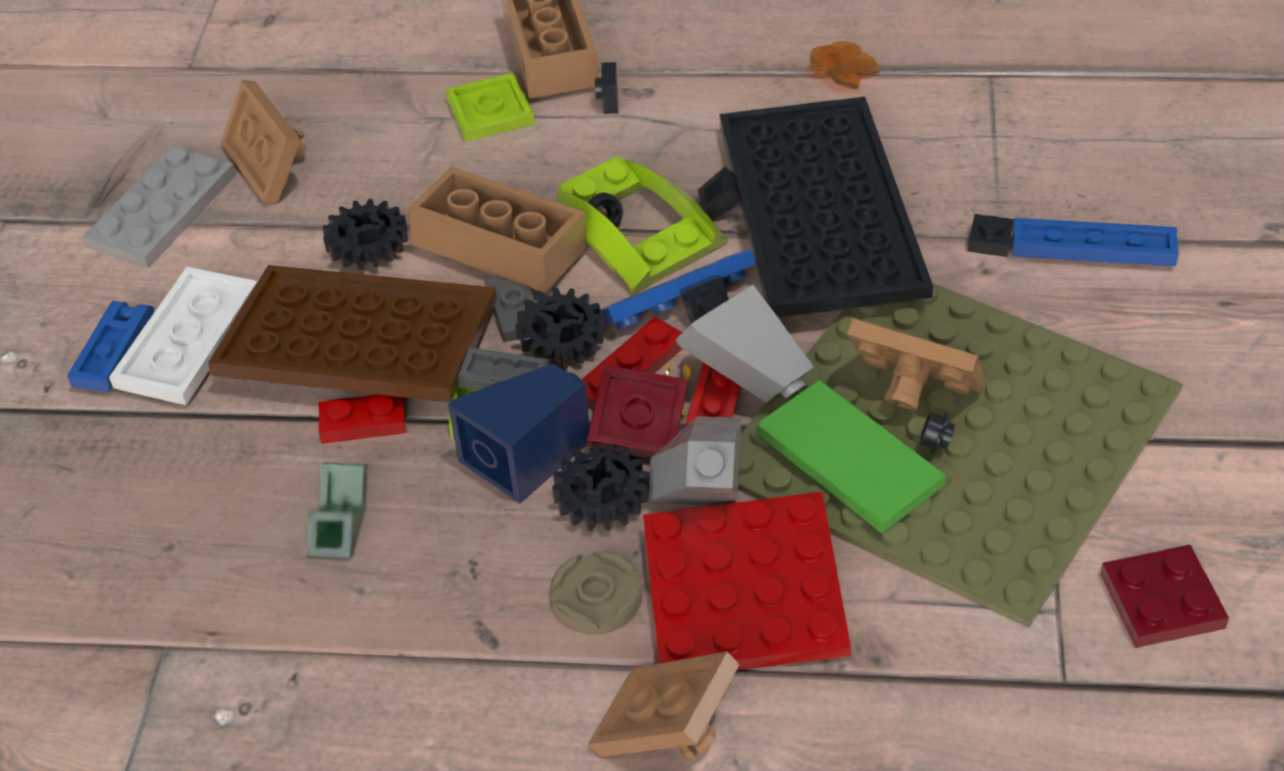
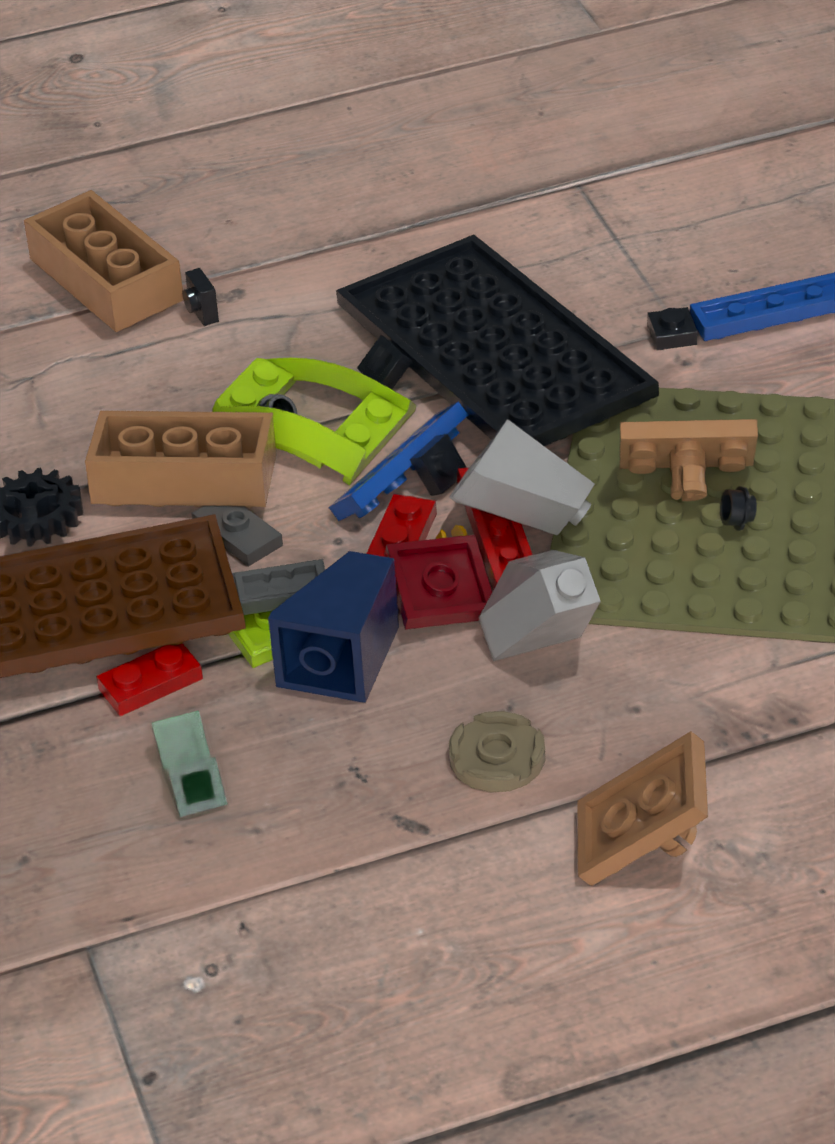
camera: 25 degrees left, 5 degrees down
(489, 107) = (77, 351): lime tile -> none
(560, 327) = (306, 529): black gear -> none
(600, 487) = (444, 658): black gear -> none
(747, 582) = (635, 688): red plate -> none
(843, 63) = (425, 209): clear orange plate -> none
(851, 455) = (670, 553): bright green tile -> none

